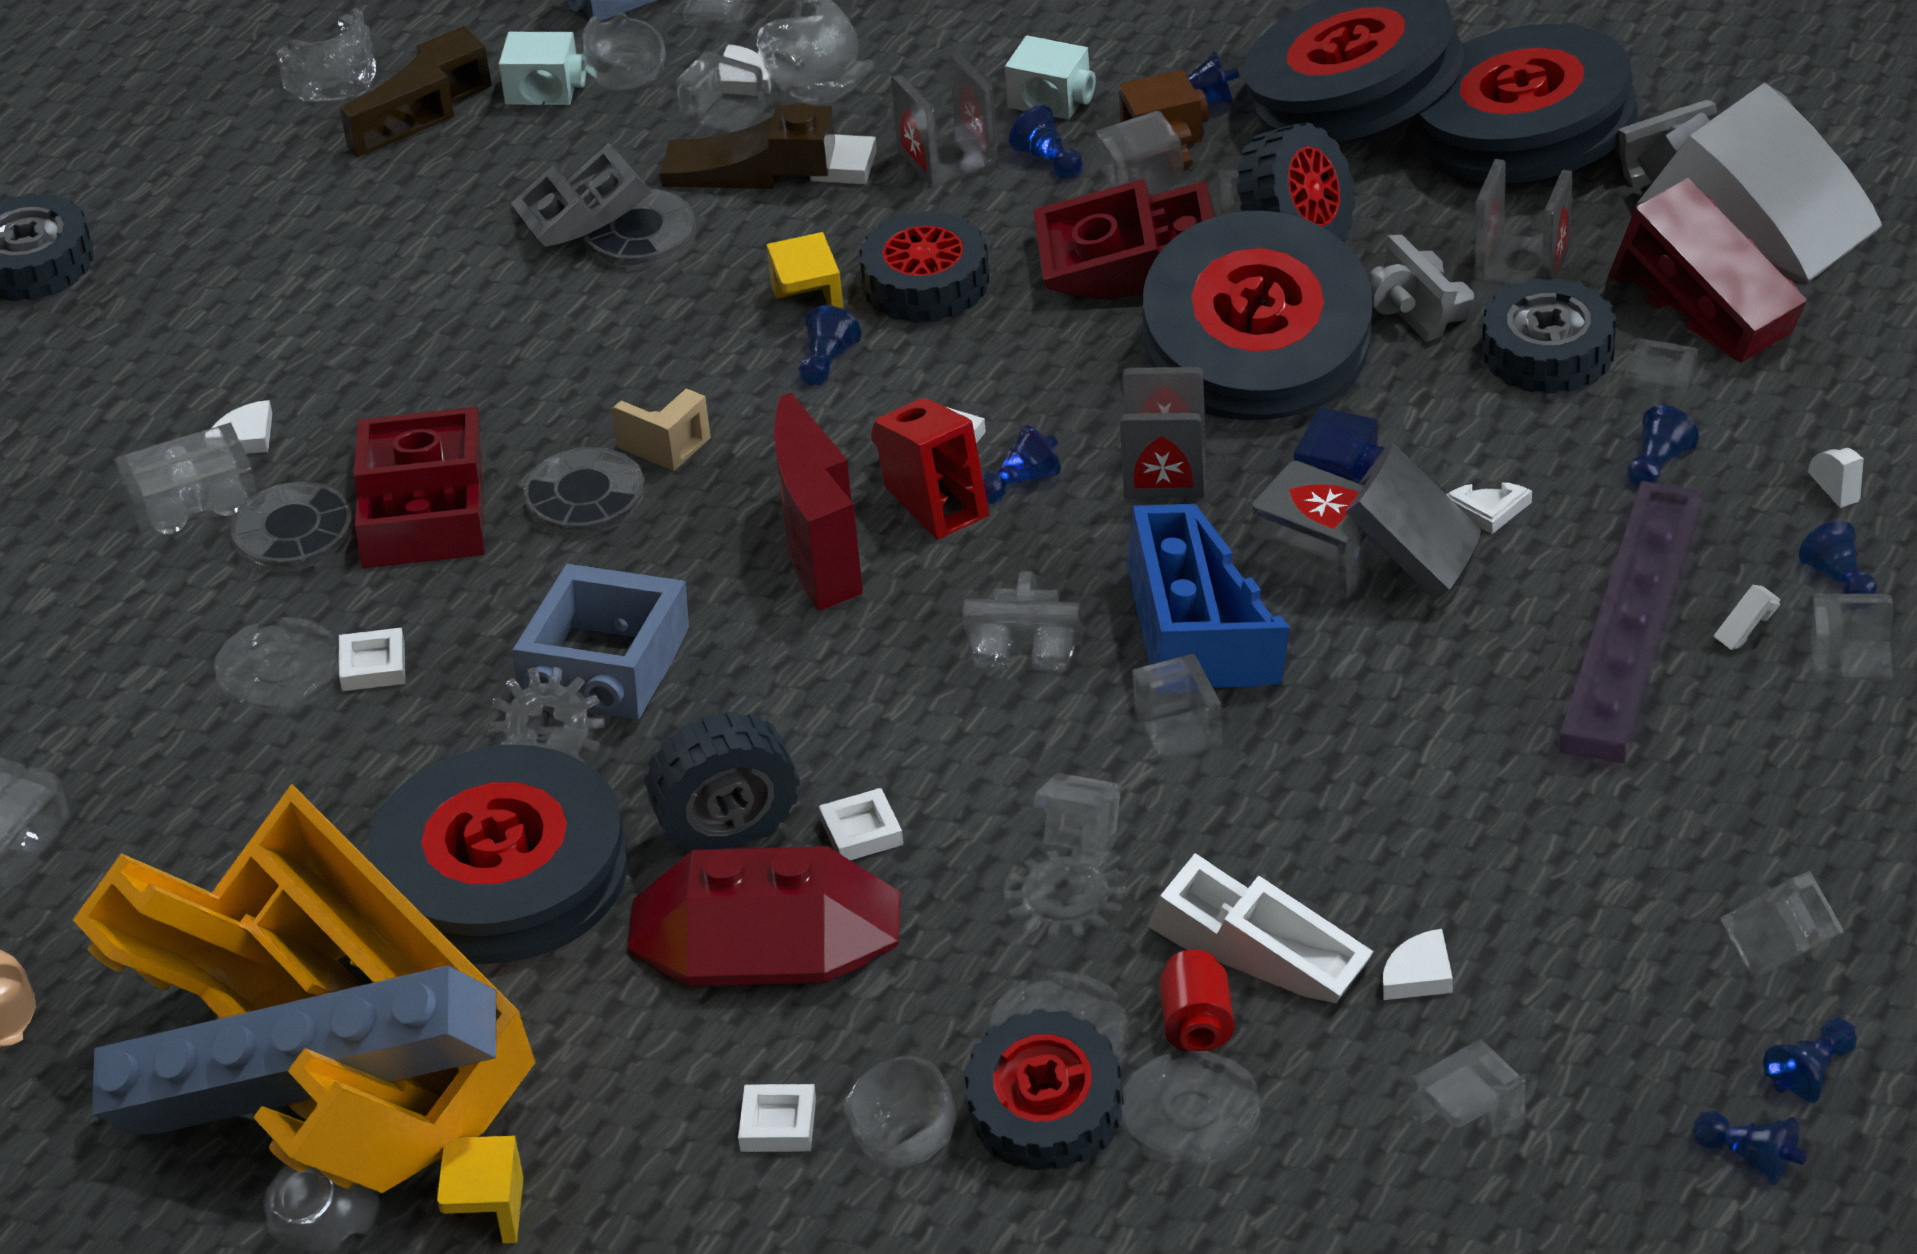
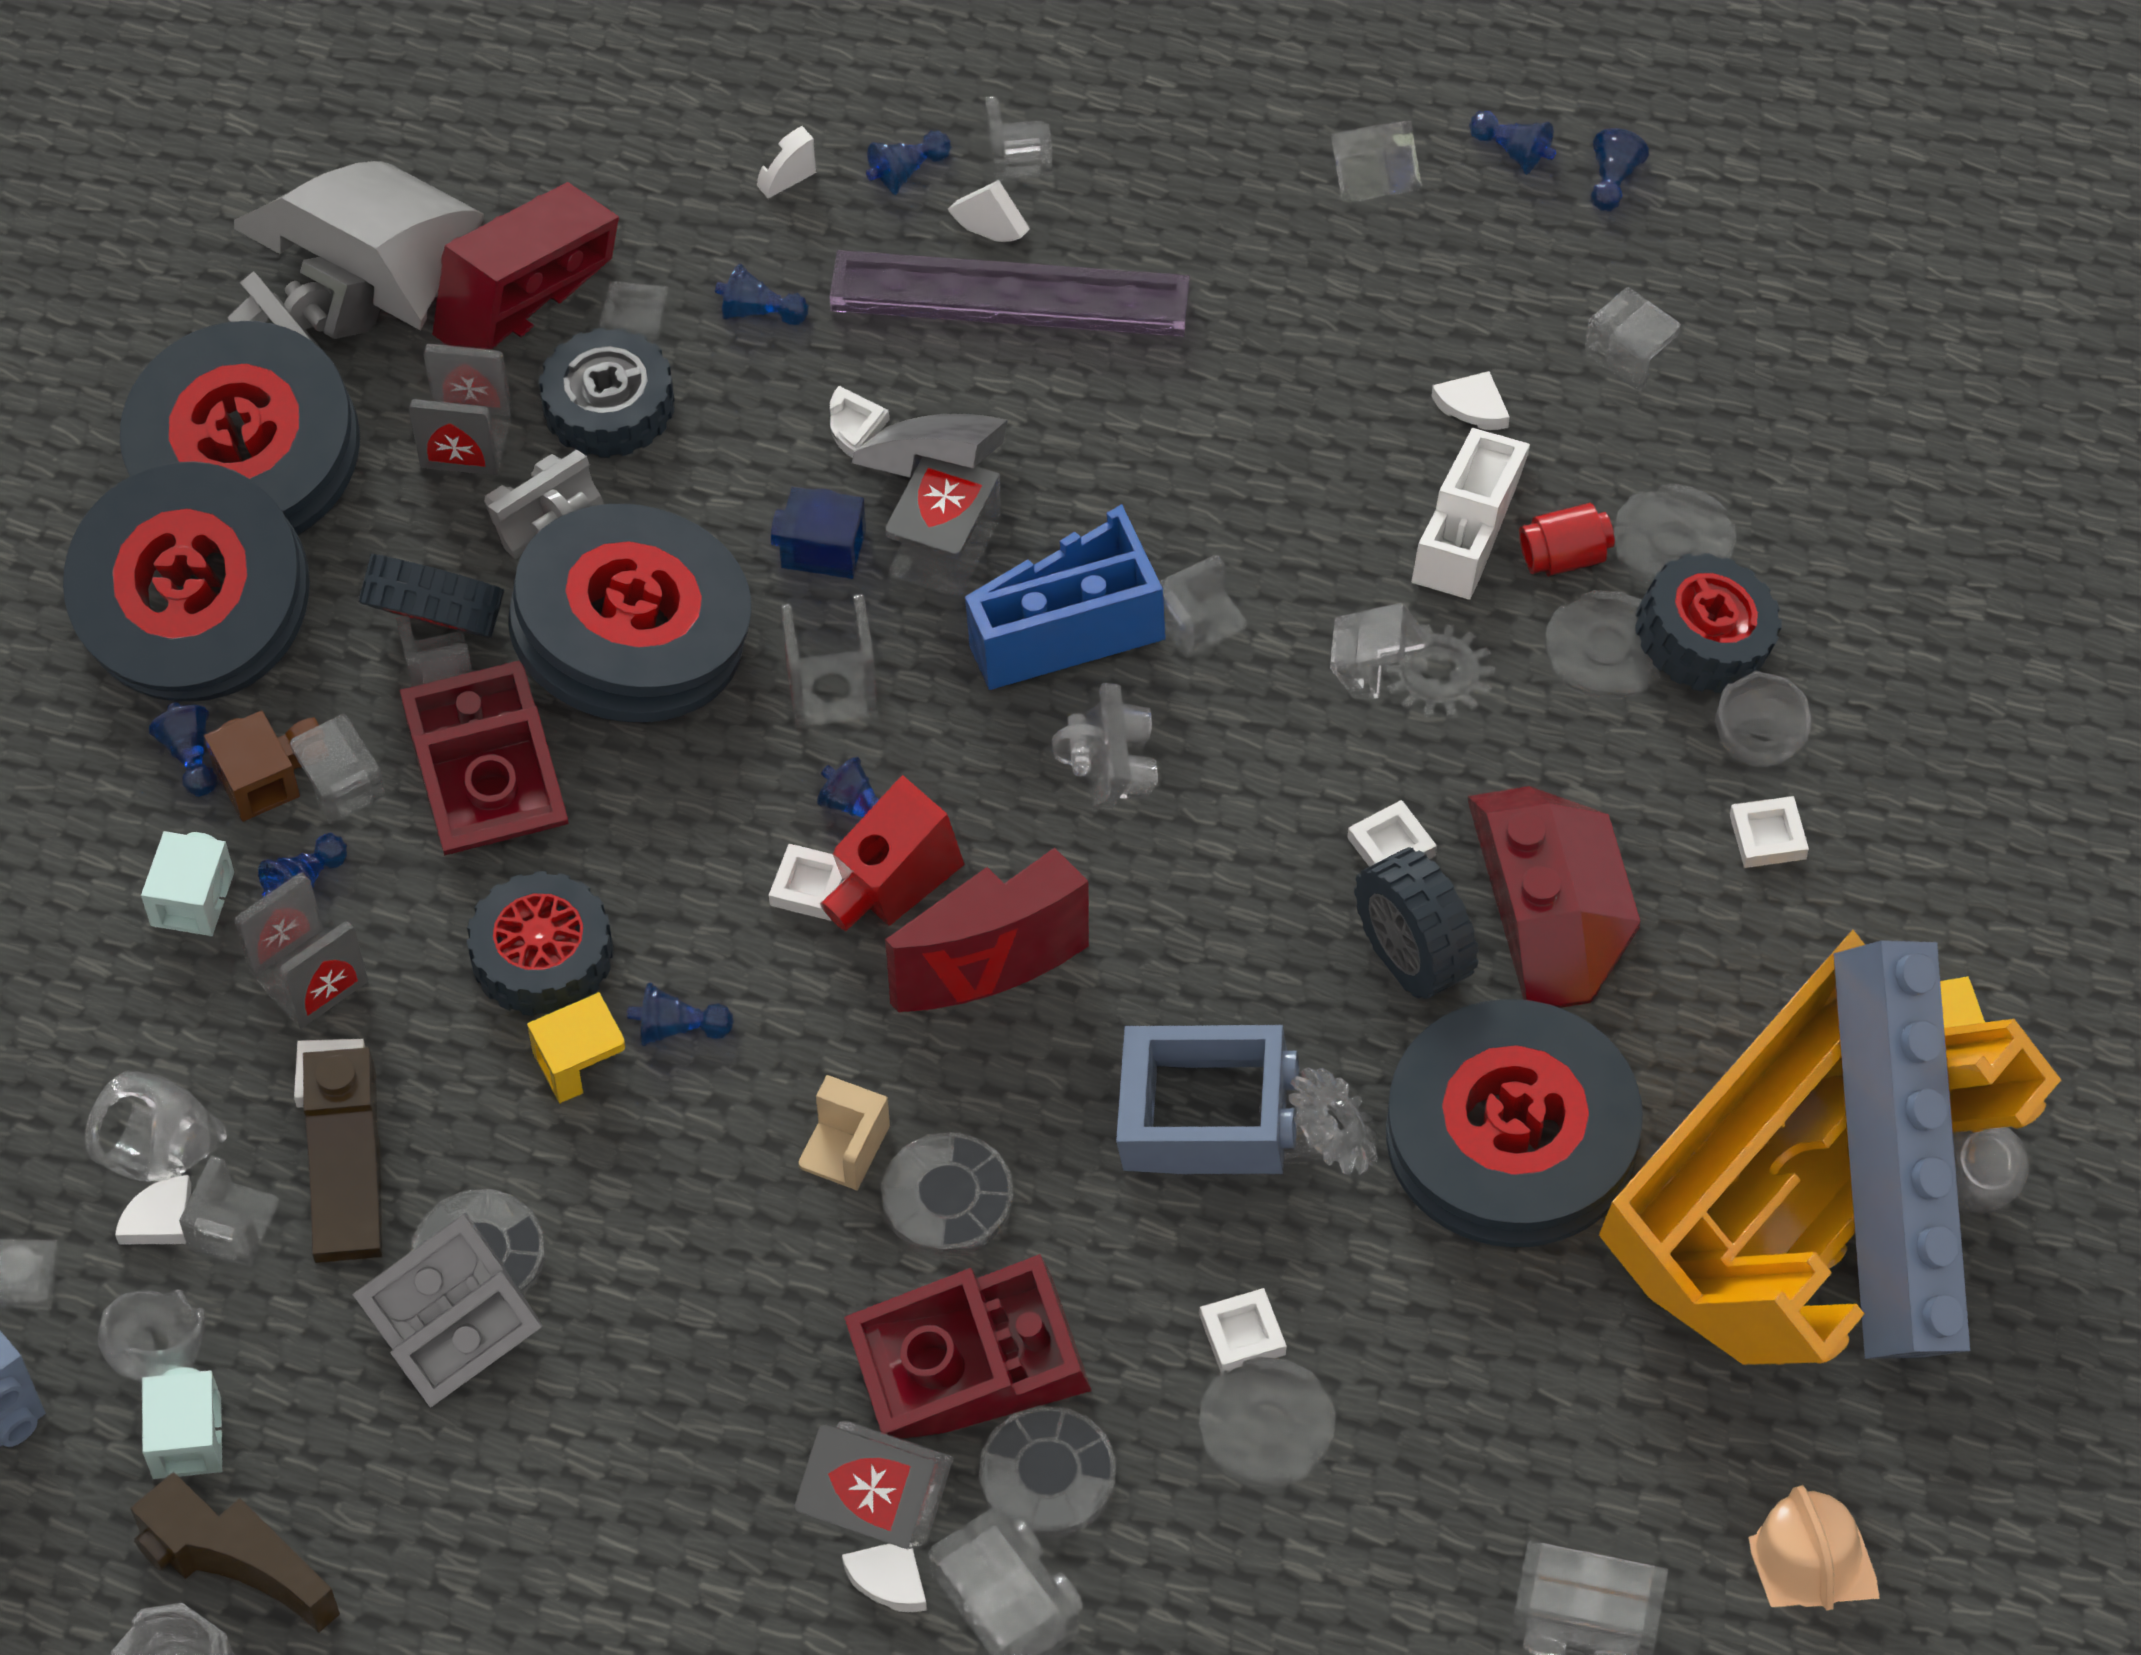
camera: 105 degrees left, 15 degrees up
(268, 396) = (873, 1484): none -> piece

